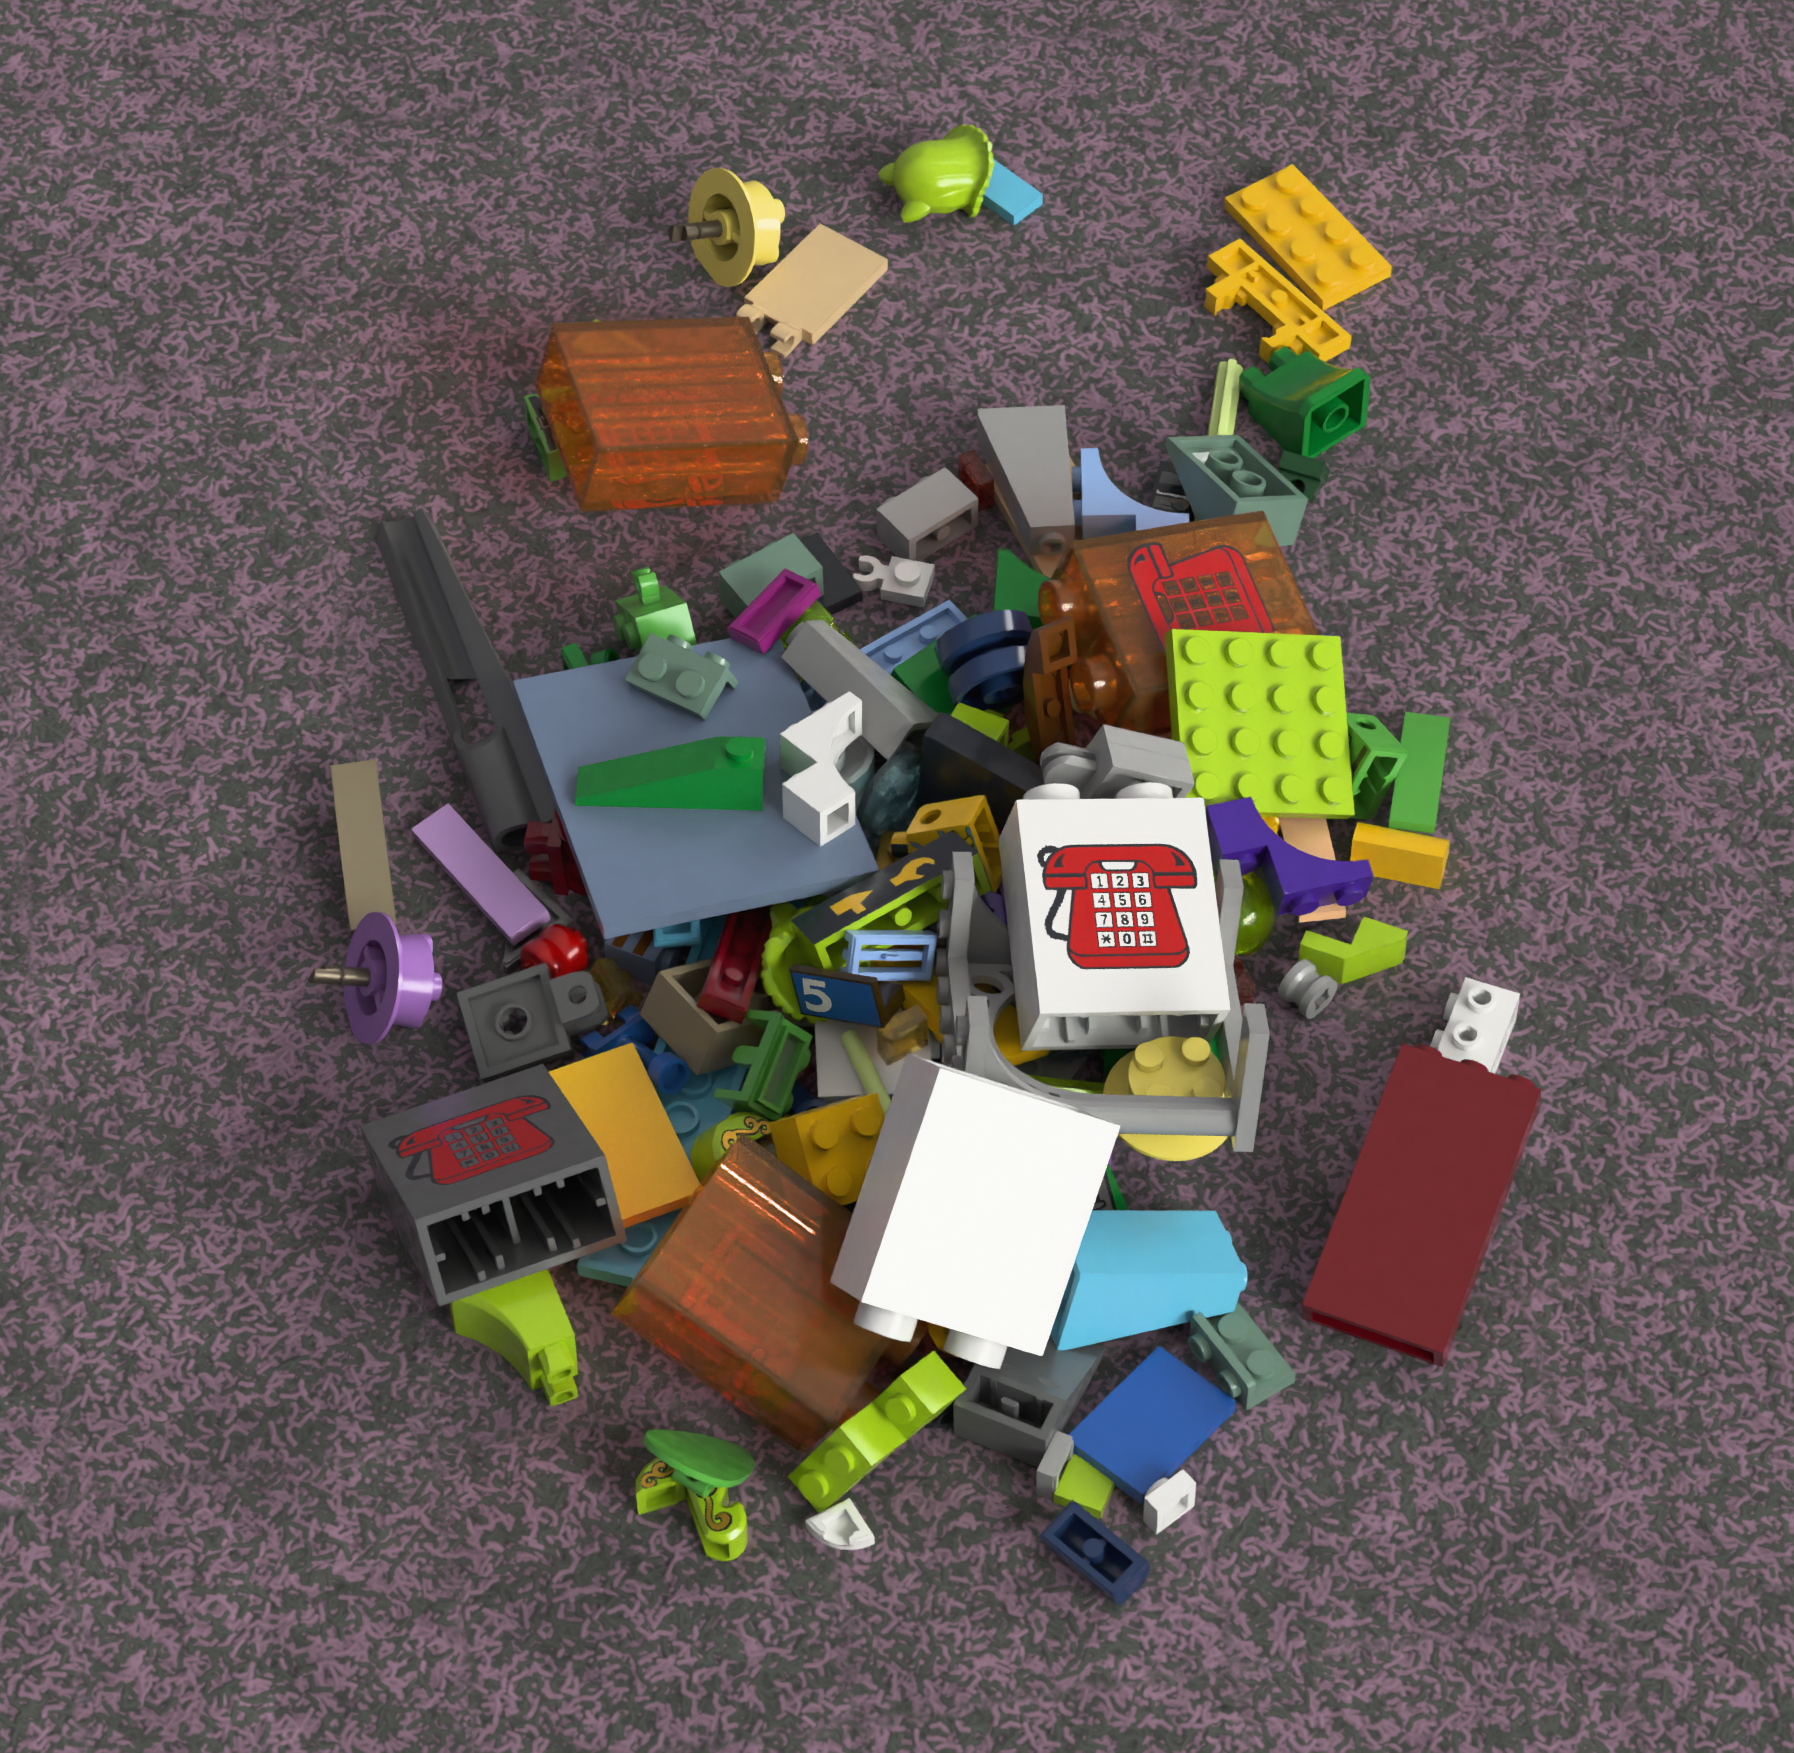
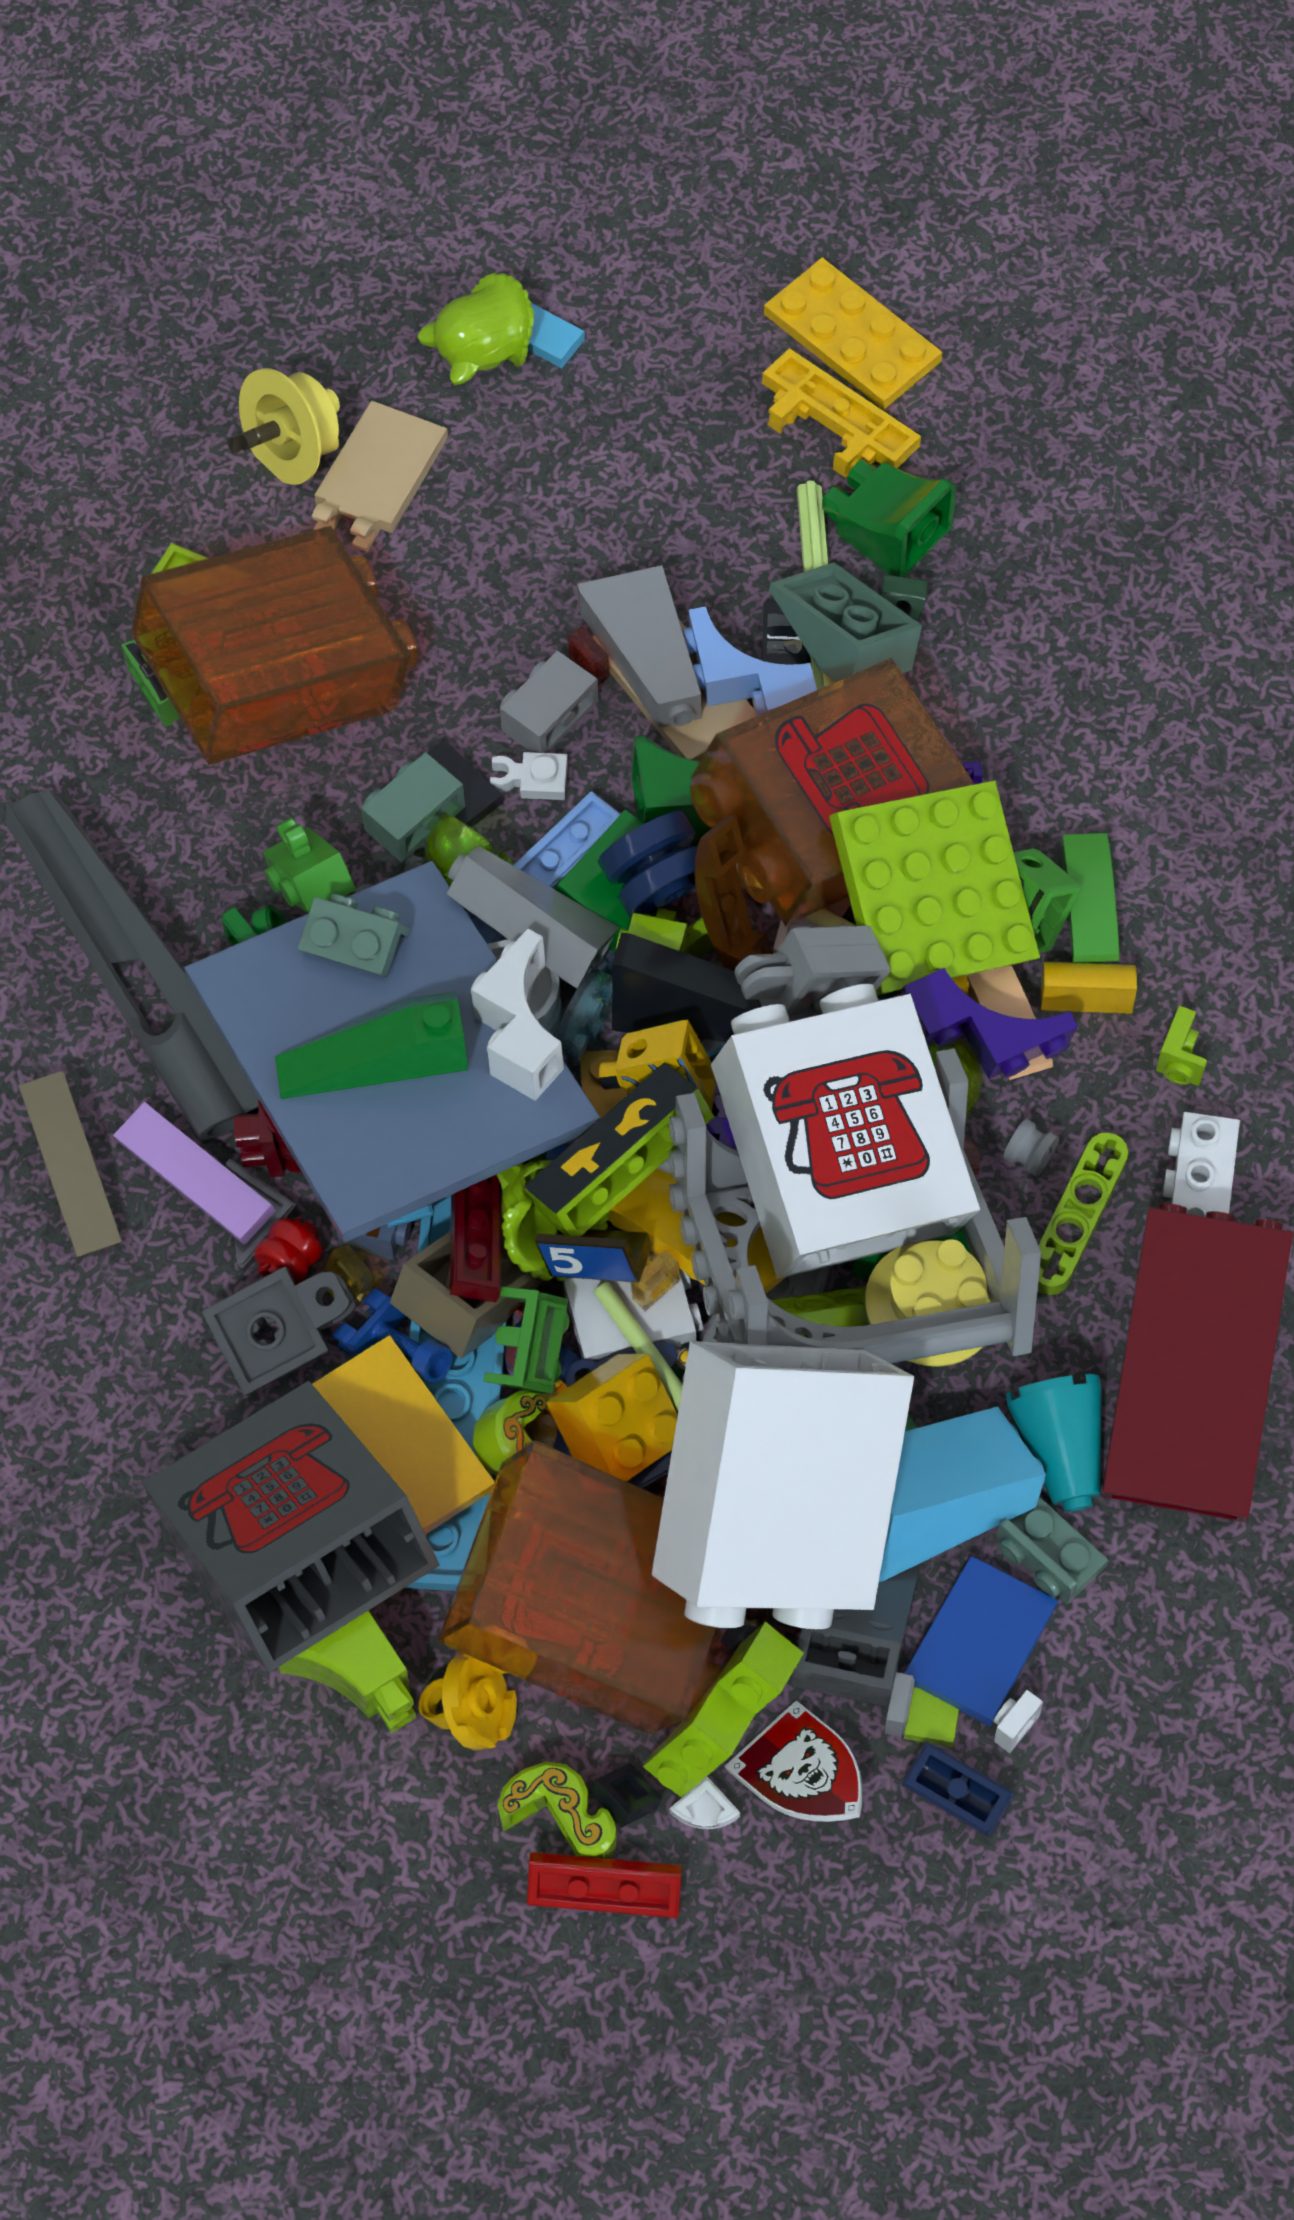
camera: 10 degrees left, 10 degrees up
(384, 978) = (126, 1310): medium lavender piece -> none
(634, 1385) = (473, 1703): none -> yellow tile
(700, 1459) = (561, 1775): bright green shield -> none
(724, 1575) = (604, 1885): none -> red tile
(766, 1499) = (625, 1795): none -> black plate
(774, 611) = (428, 845): magenta tile -> none
(890, 937) = (628, 1197): light blue tile -> none
(943, 1505) = (801, 1768): none -> shield
(1277, 1243) = (1064, 1432): none -> teal cone
(1338, 1056) = (1078, 1213): none -> lime beam
(1372, 950) = (1086, 1093): lime slope -> none
(1475, 925) = (1176, 1055): none -> lime bracket

